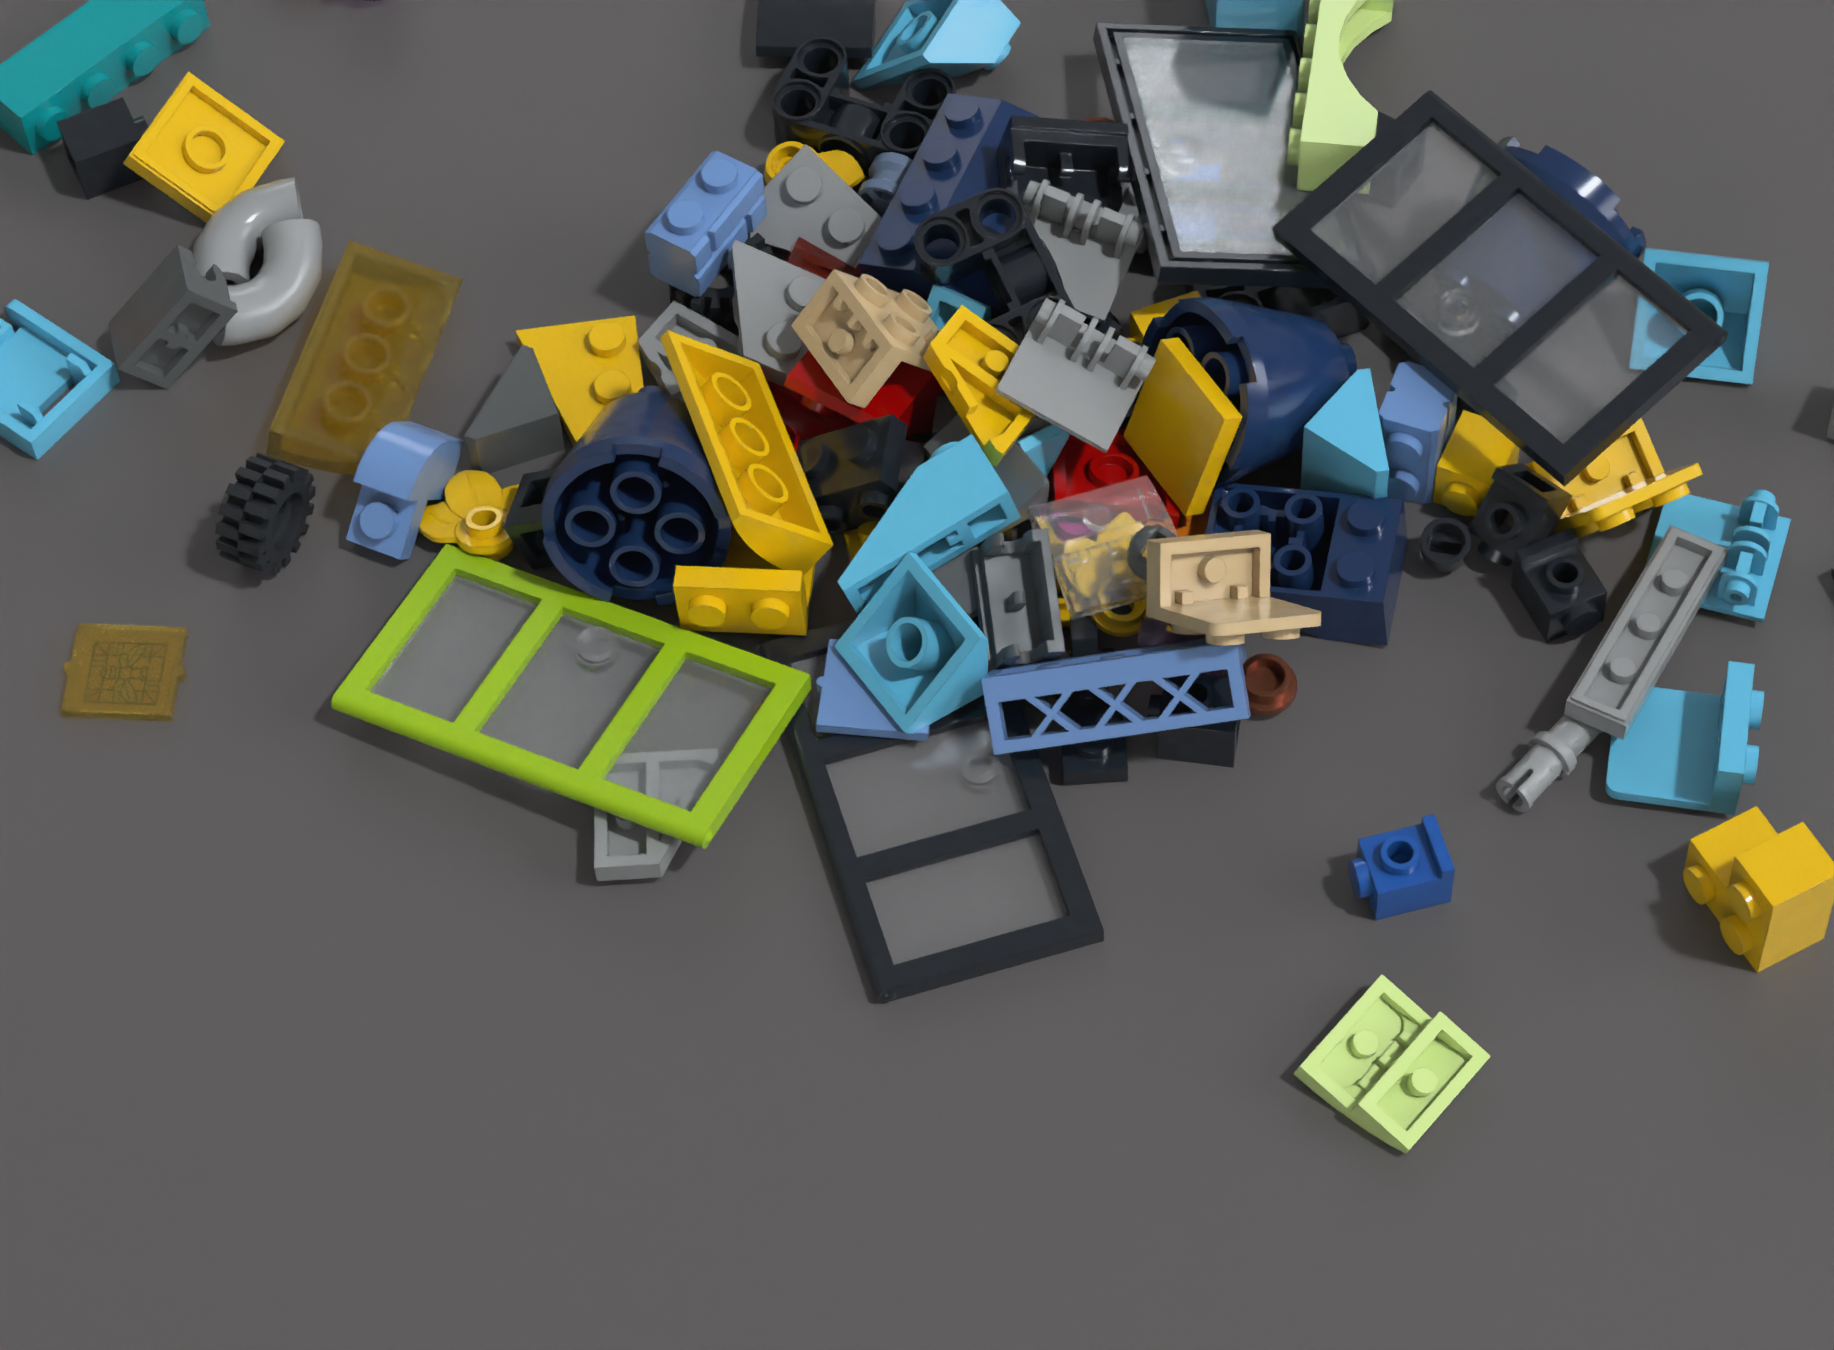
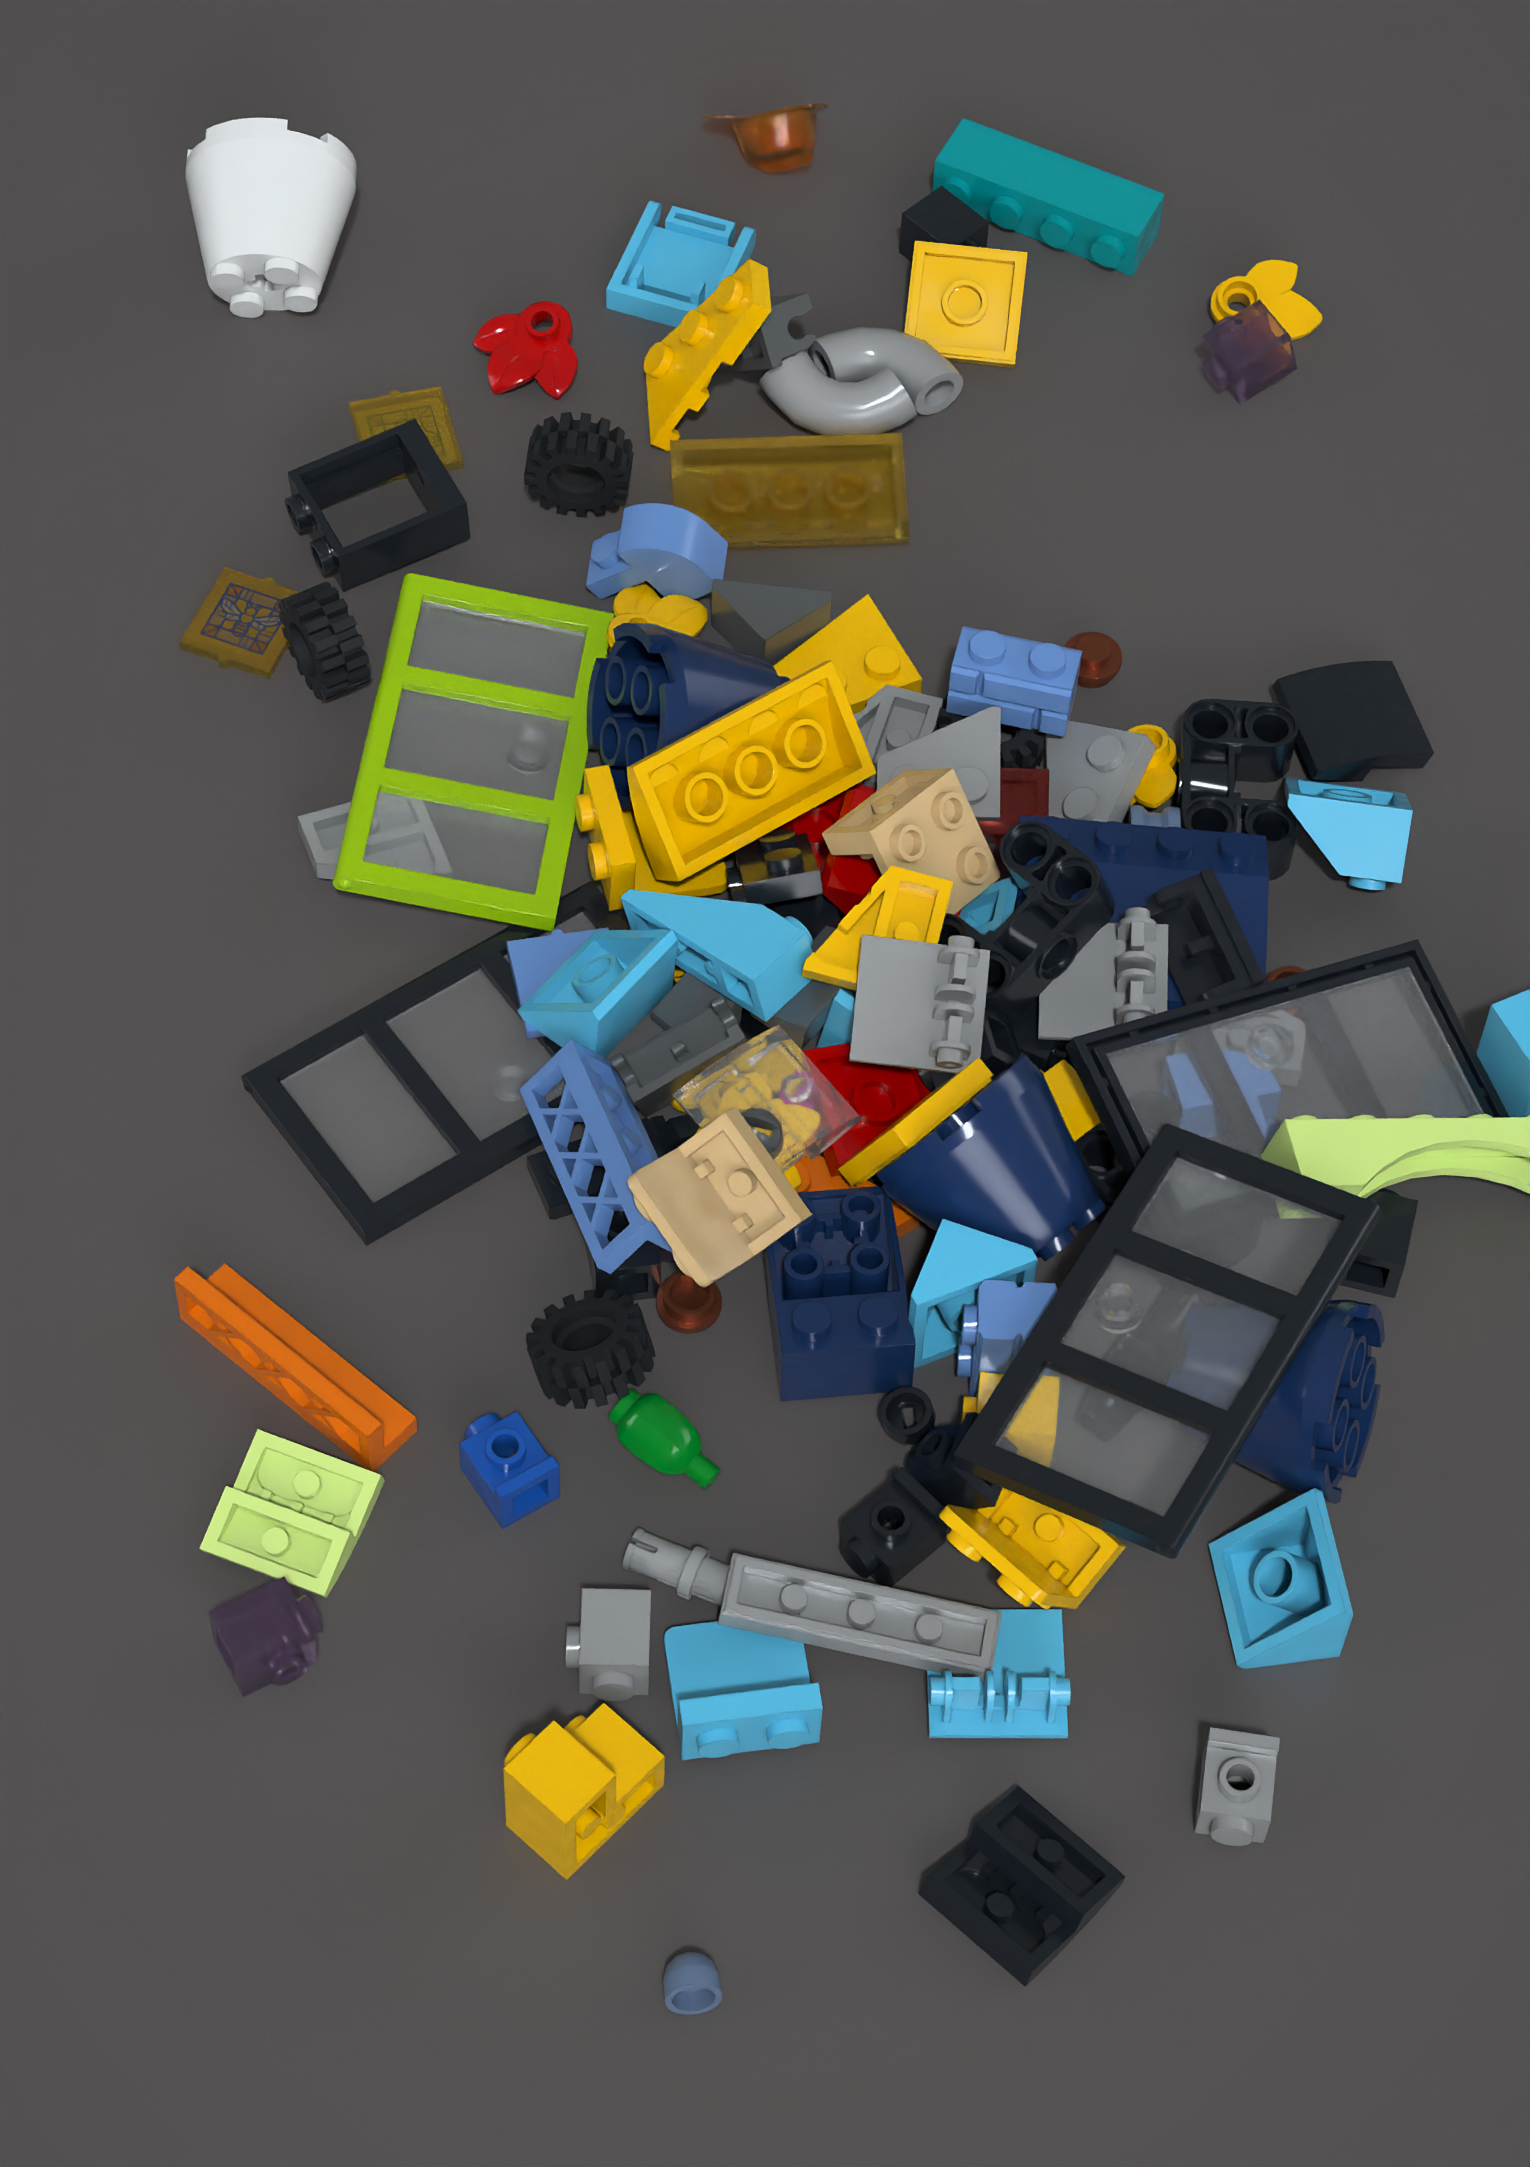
camera: 65 degrees right, 0 degrees up
(74, 539) = (525, 353): none -> red plate
(176, 366) = (707, 336): none -> yellow wing
(222, 651) = (363, 466): none -> black window
(307, 871) = (240, 624): none -> piece
(392, 786) = (324, 640): none -> black tyre
(661, 179) = (1099, 659): none -> copper plate
(1231, 1024) = (294, 1365): none -> orange fence
(1284, 742) = (590, 1348): none -> black tyre
(1404, 742) = (662, 1438): none -> green plant
(1529, 1110) = (266, 1636): none -> clear purple brick
(1615, 829) = (611, 1643): none -> light grey brick

